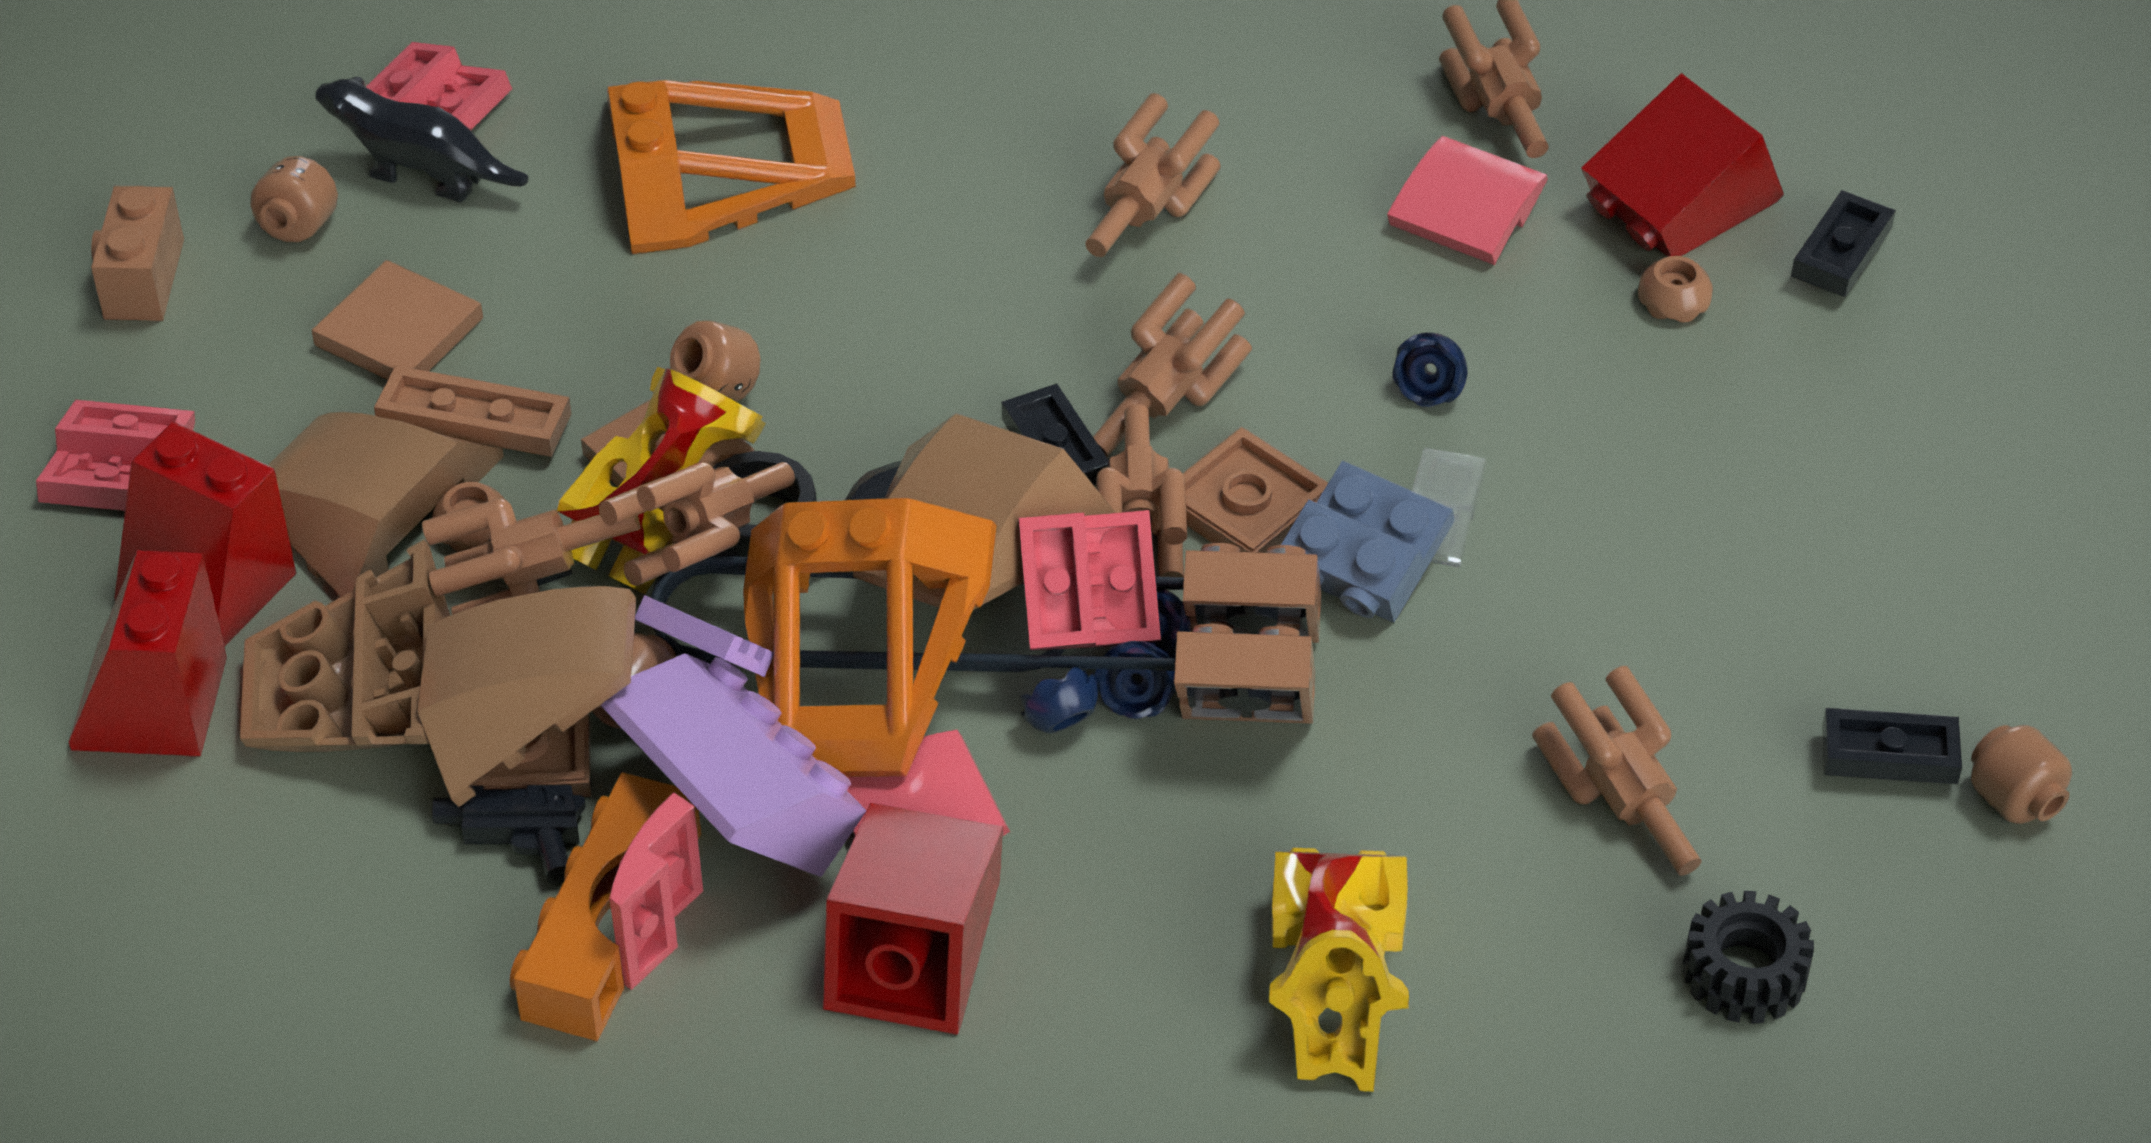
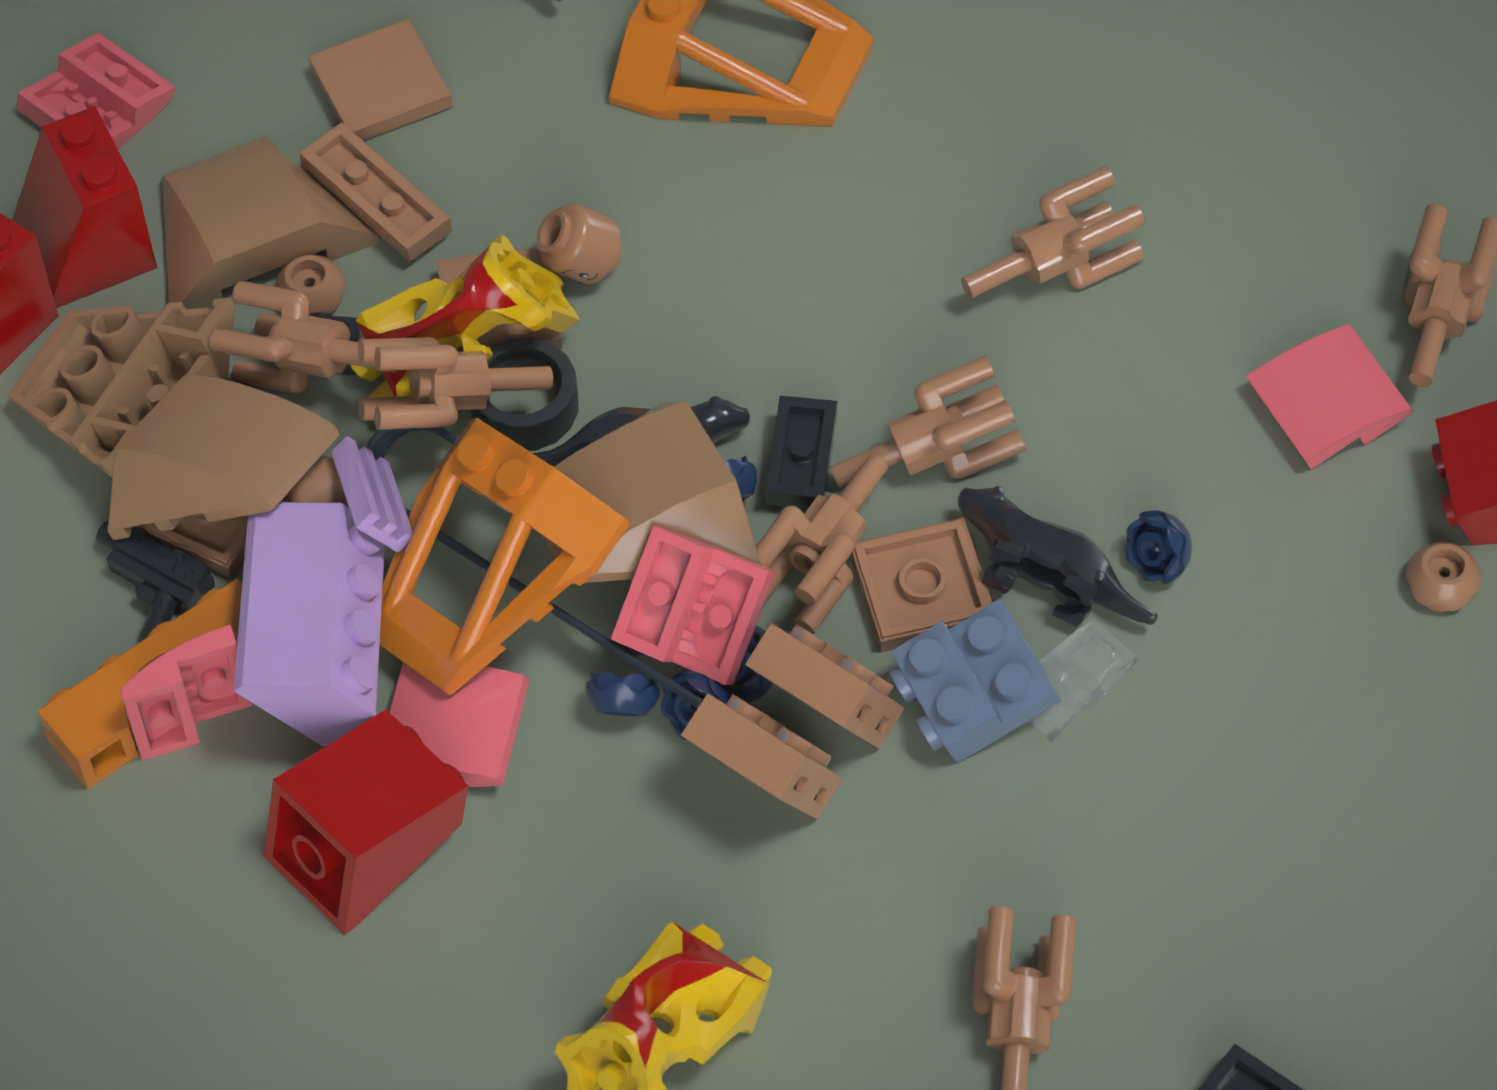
camera: 35 degrees right, 10 degrees up
(1343, 421) = (1047, 558): none -> black animal

